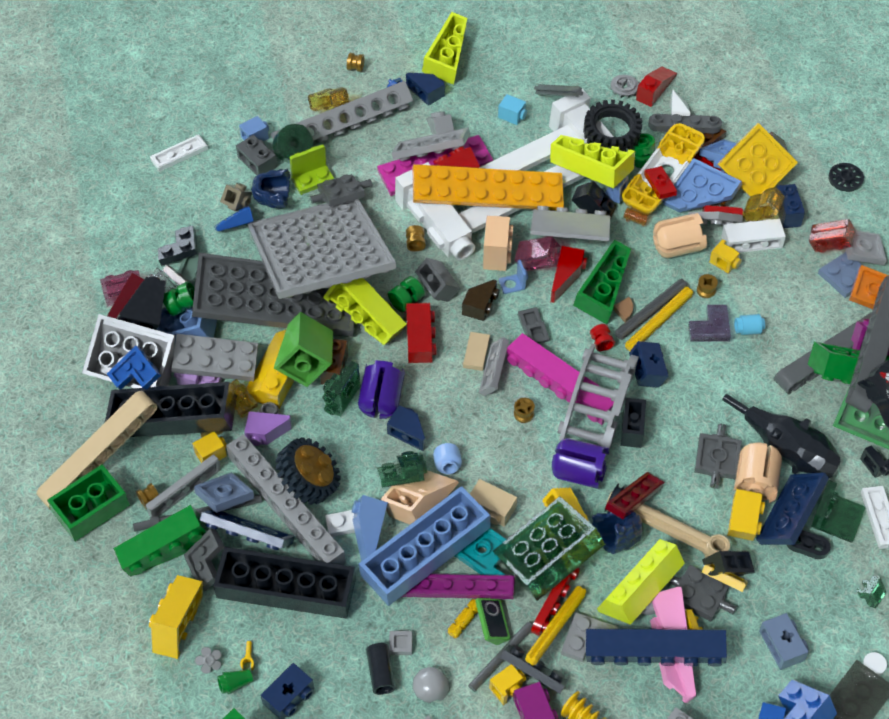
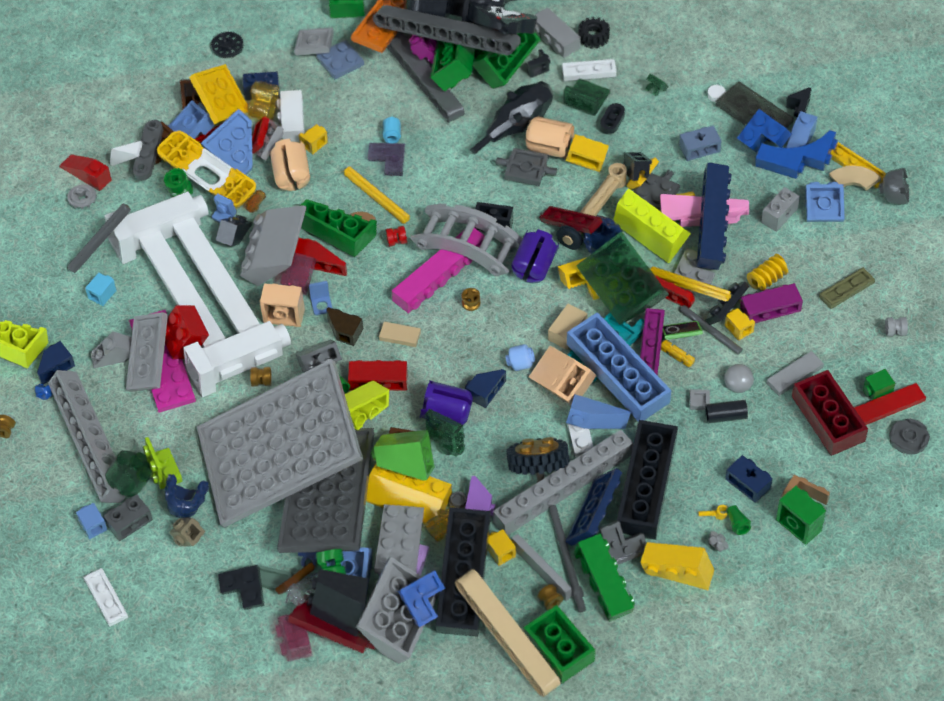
camera: 85 degrees left, 0 degrees up
(224, 492) = (552, 530): sand blue plate -> none
(239, 218) = (215, 529): blue slope -> none
(328, 99) = (63, 445): clear yellow brick -> none
(341, 190) = (189, 439): dark grey plate -> none
(408, 470) = (536, 388): clear green plate -> none
(486, 187) = (219, 304): light orange plate -> none
(493, 366) = (422, 318): light grey tile -> none
(532, 325) = (378, 289): dark grey slope -> none
(592, 160) = (202, 214): neon yellow wedge -> none
(613, 110) = (165, 211): black tyre -> none
(650, 309) = (364, 199): dark grey axle -> none
(650, 366) = (423, 198): dark blue brick -> none
(660, 182) = (227, 171): red plate -> none
(707, 286) = (345, 155): pearl gold wheel -> none
(792, 509) = (586, 118): dark blue plate -> none
(832, 235) = (305, 57): clear red brick -> none

